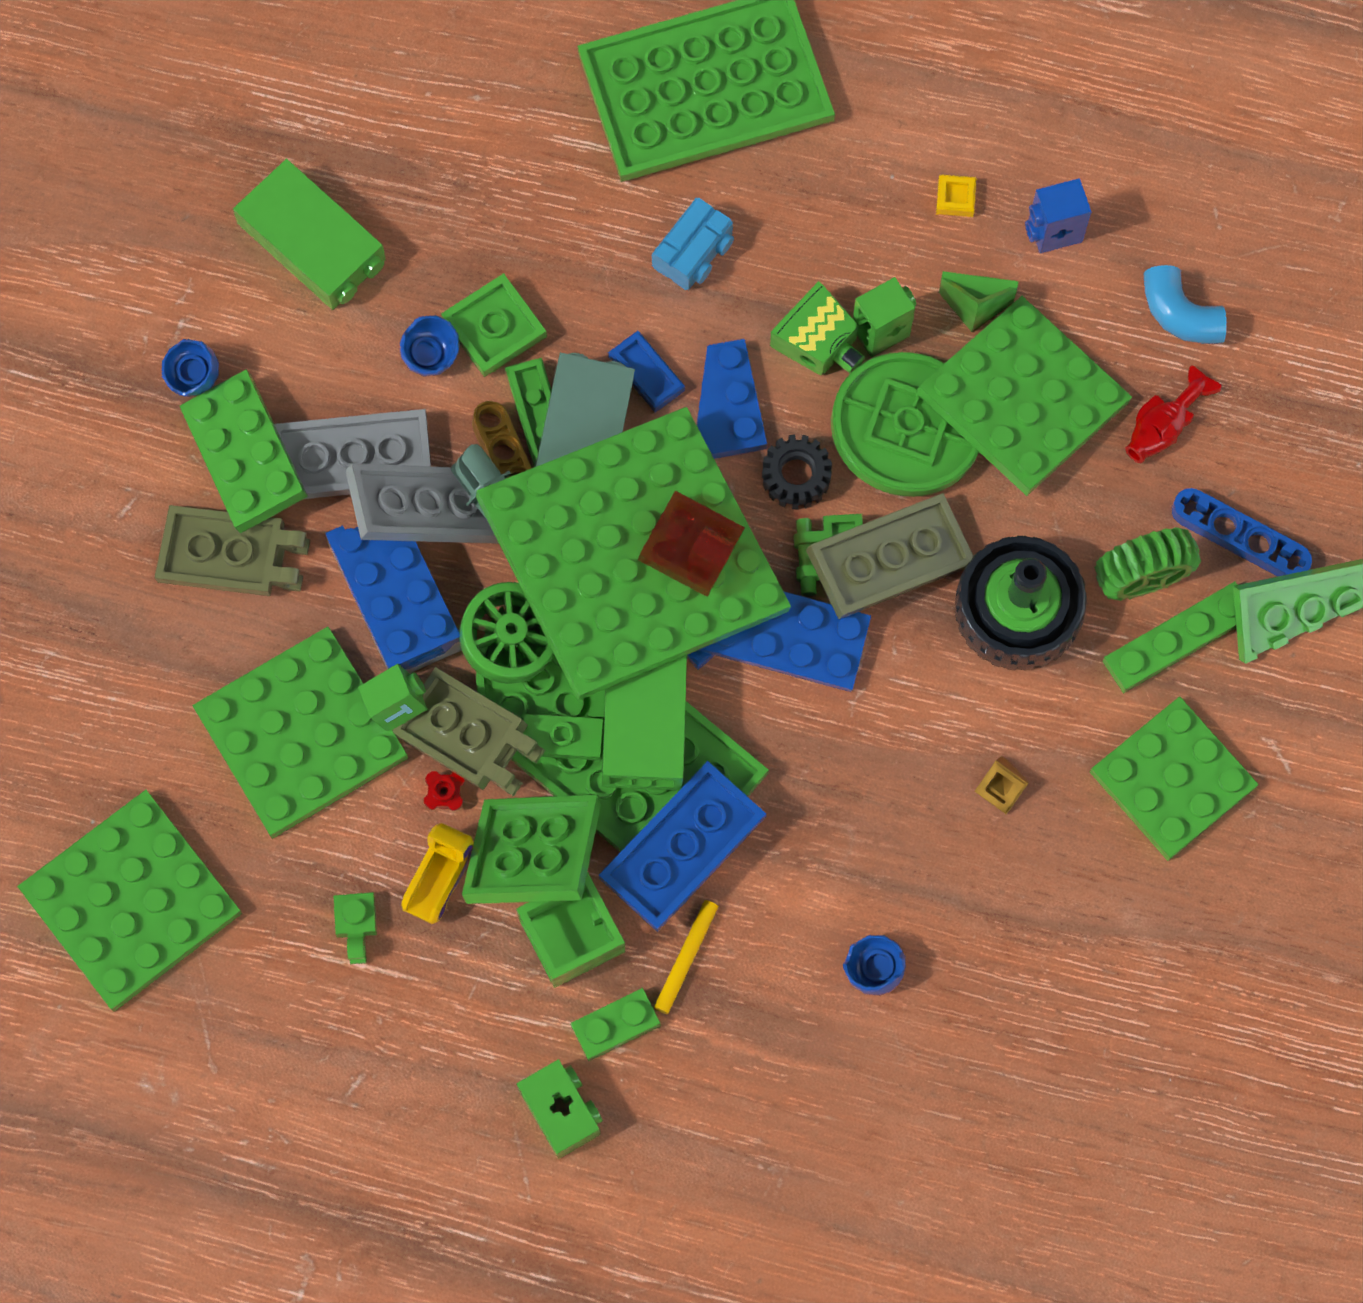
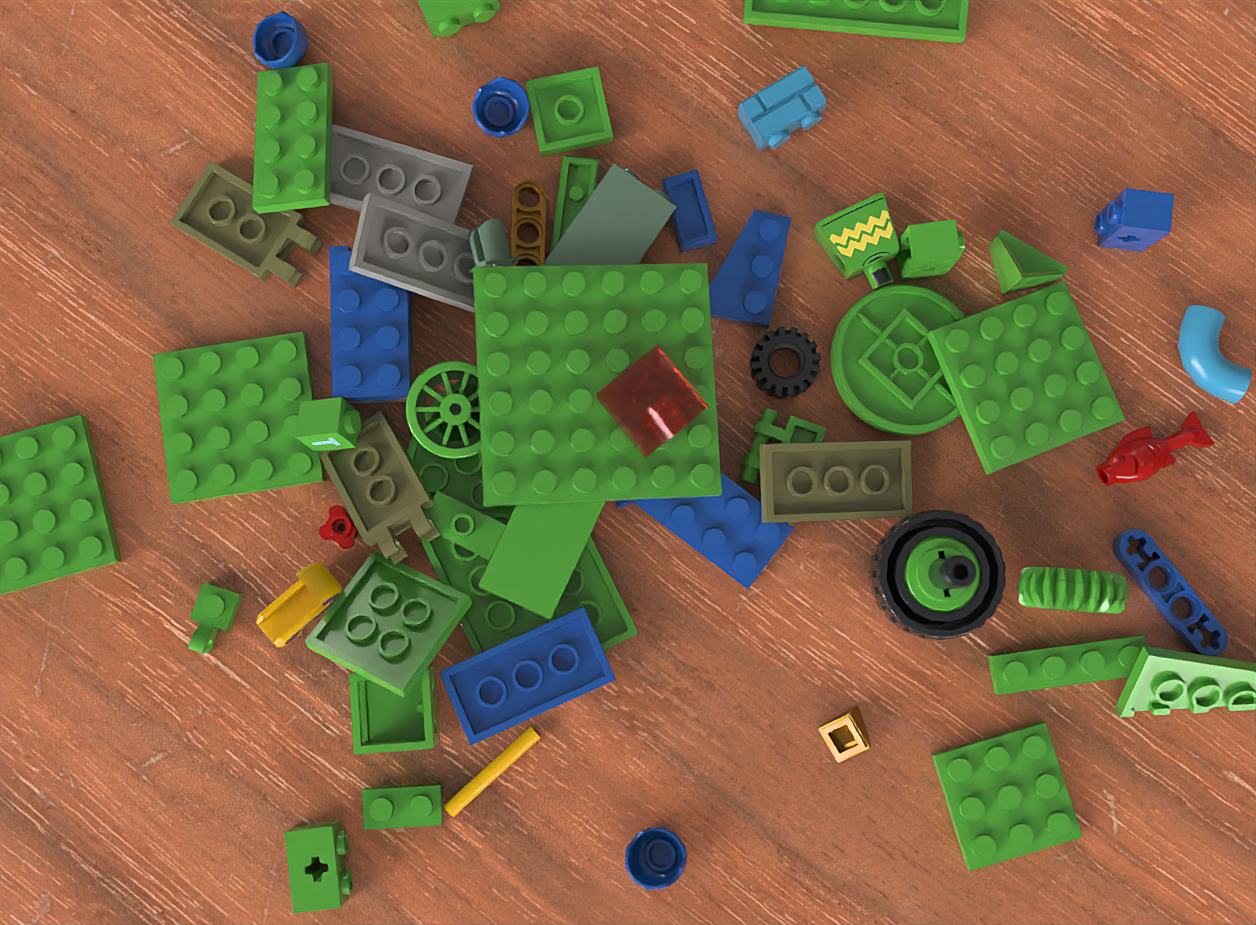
camera: 25 degrees right, 10 degrees up
(956, 195) = (1044, 160): yellow tile -> none

